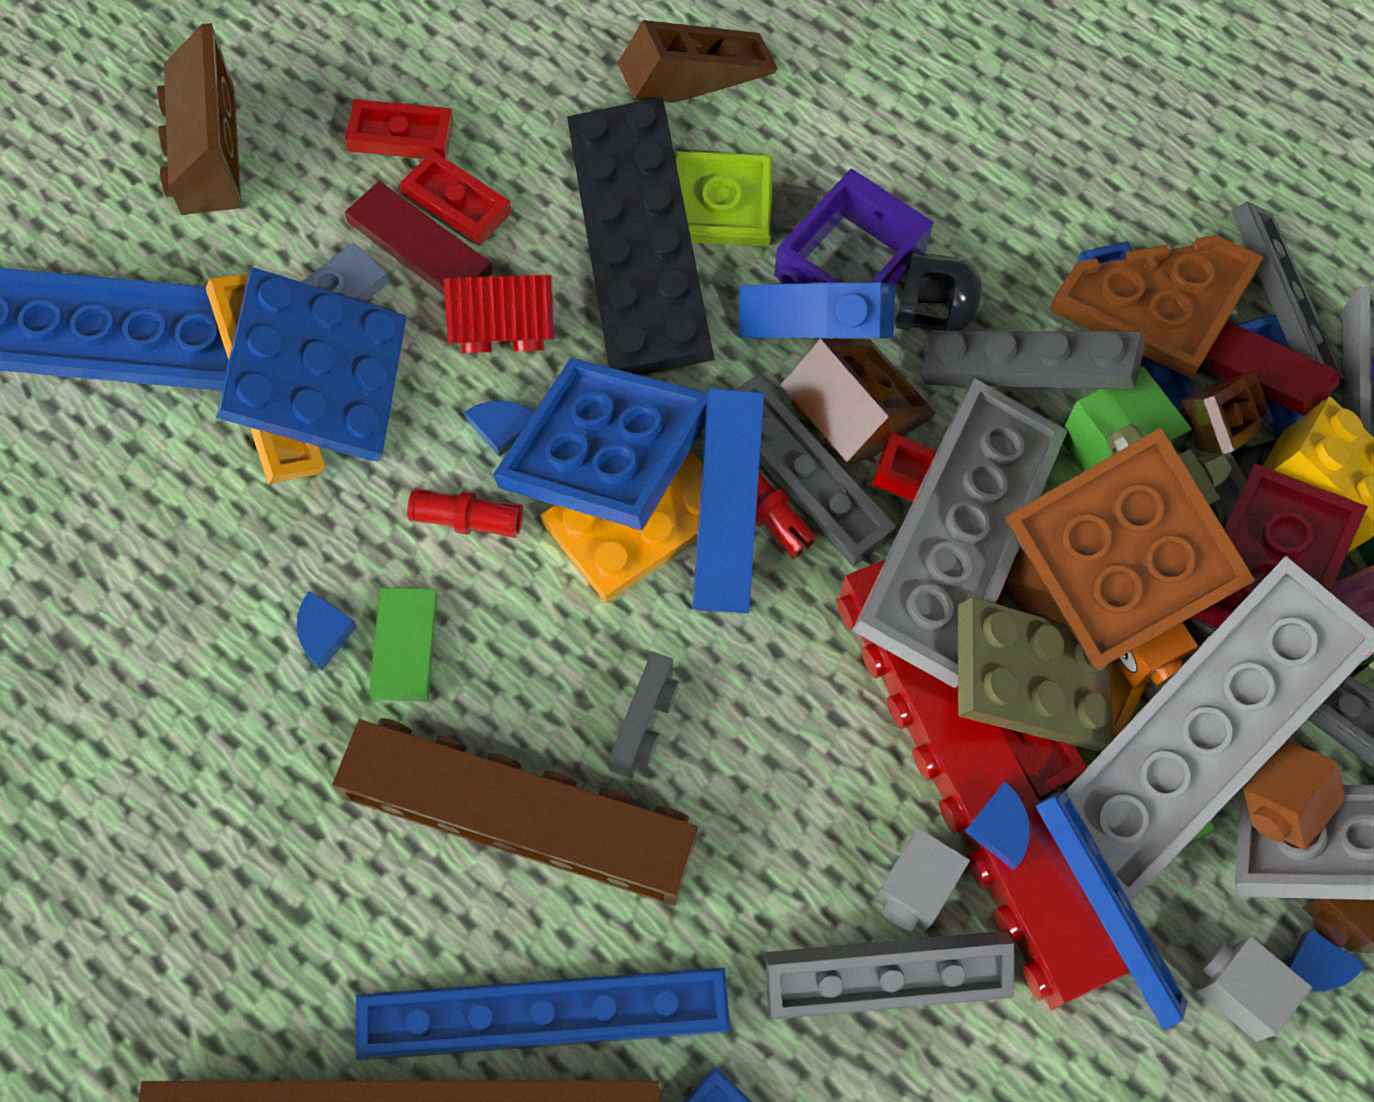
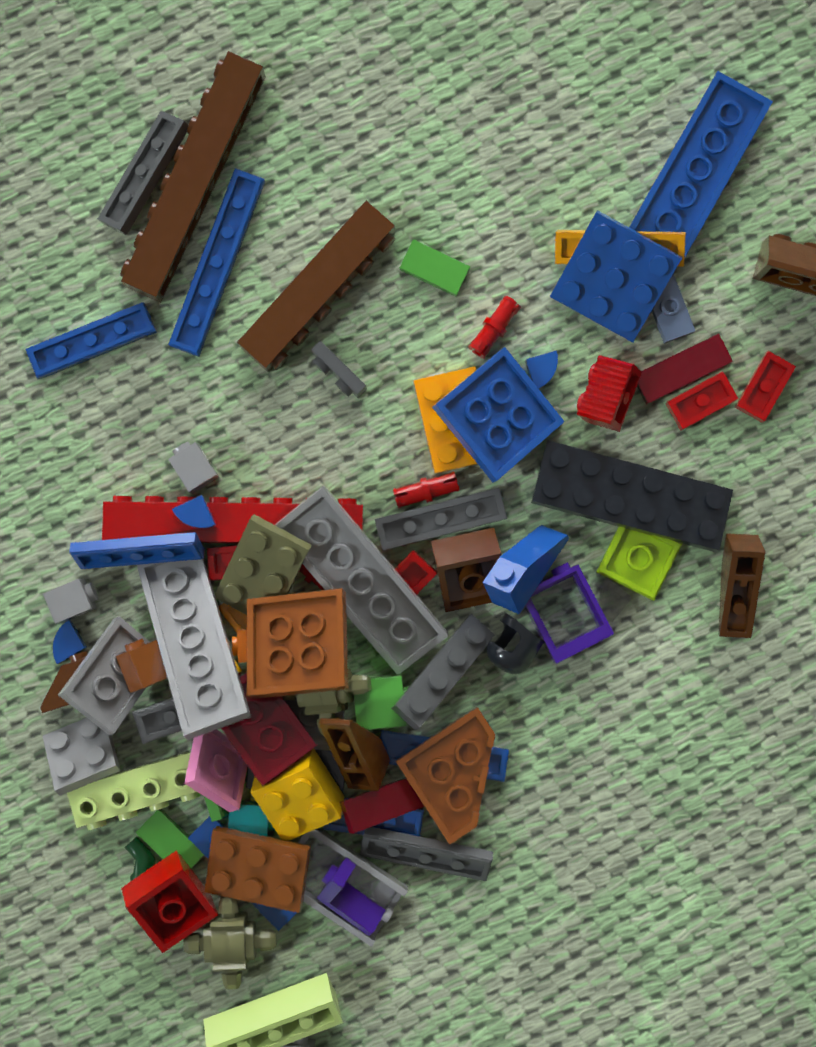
camera: 115 degrees right, 20 degrees up
(322, 629) = (461, 229): blue tile -> none
(728, 501) = (434, 464): blue tile -> none
(890, 974) = (157, 430): plate -> none

